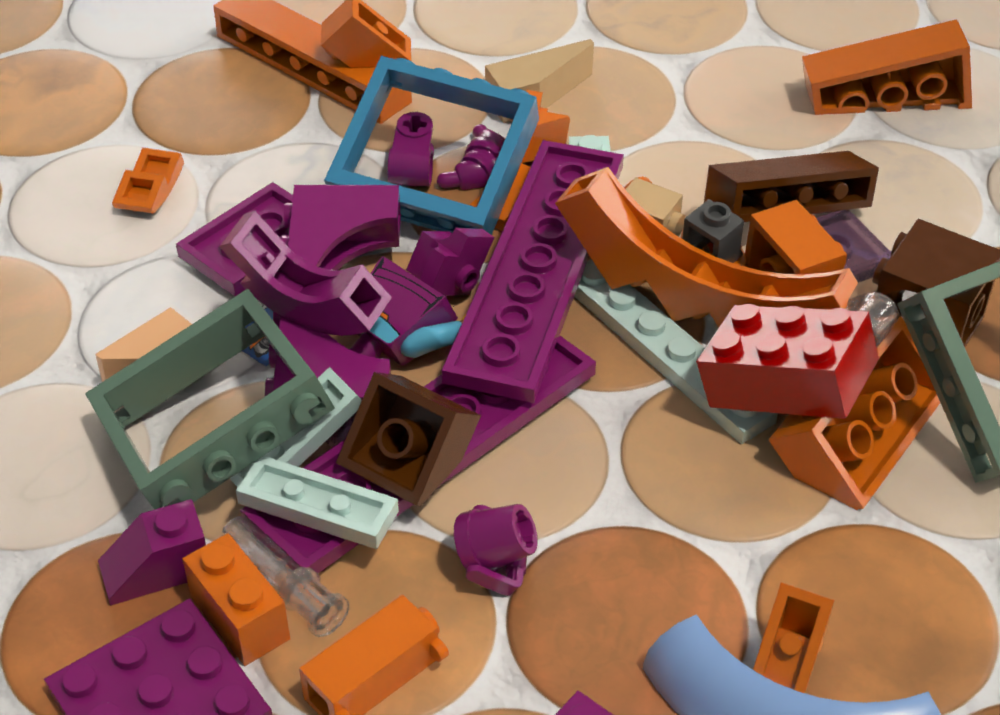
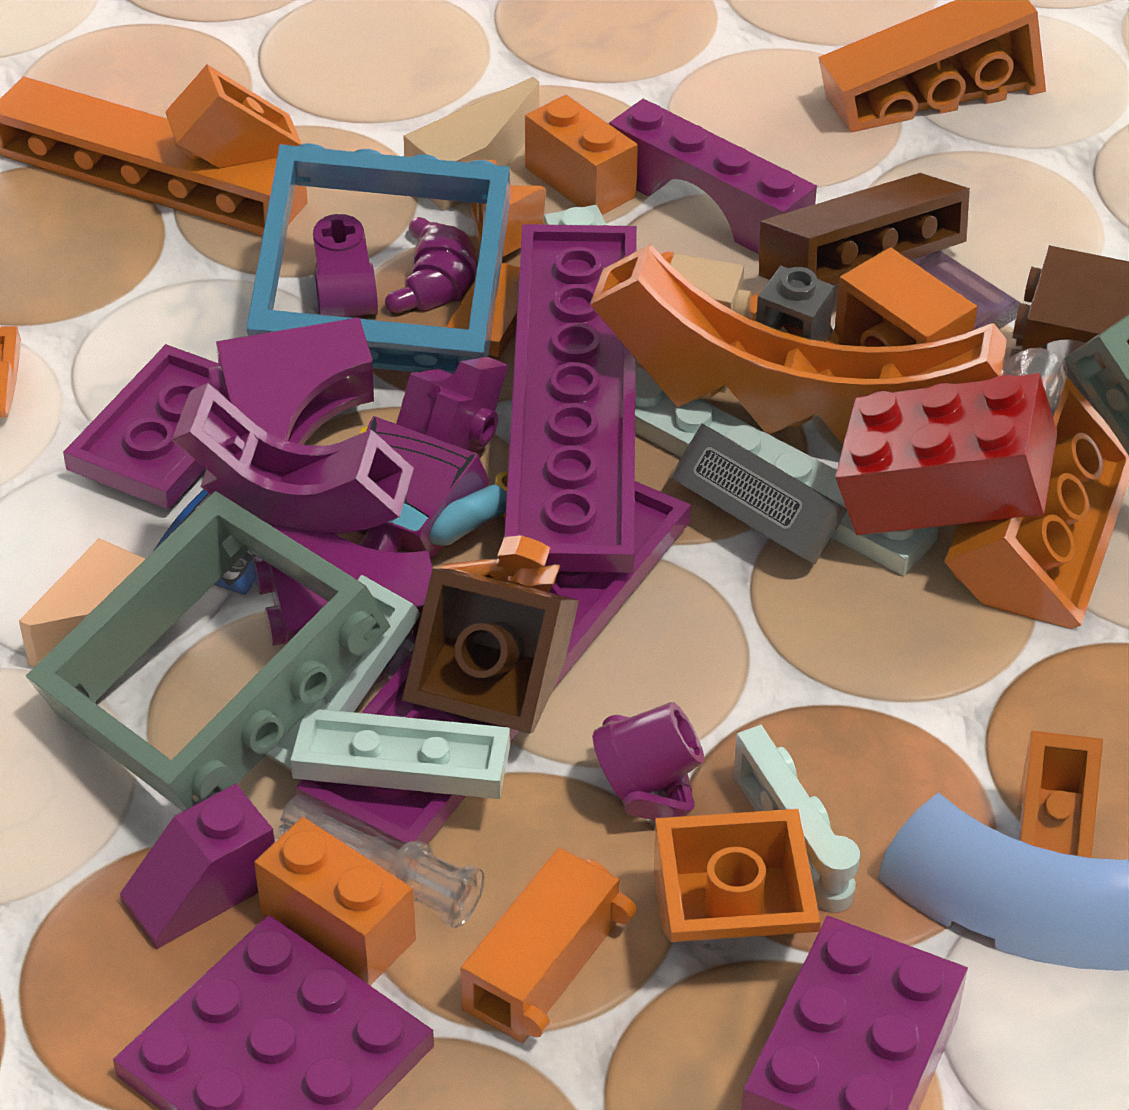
camera: 15 degrees left, 0 degrees up
(446, 379) = (518, 562): none -> orange bar
(520, 645) = (733, 876): none -> orange slope
(592, 613) = (770, 784): none -> light aqua plate
(608, 99) = (580, 155): none -> orange brick
(648, 363) = (758, 493): none -> dark grey beam
(665, 102) = (736, 179): none -> magenta arch

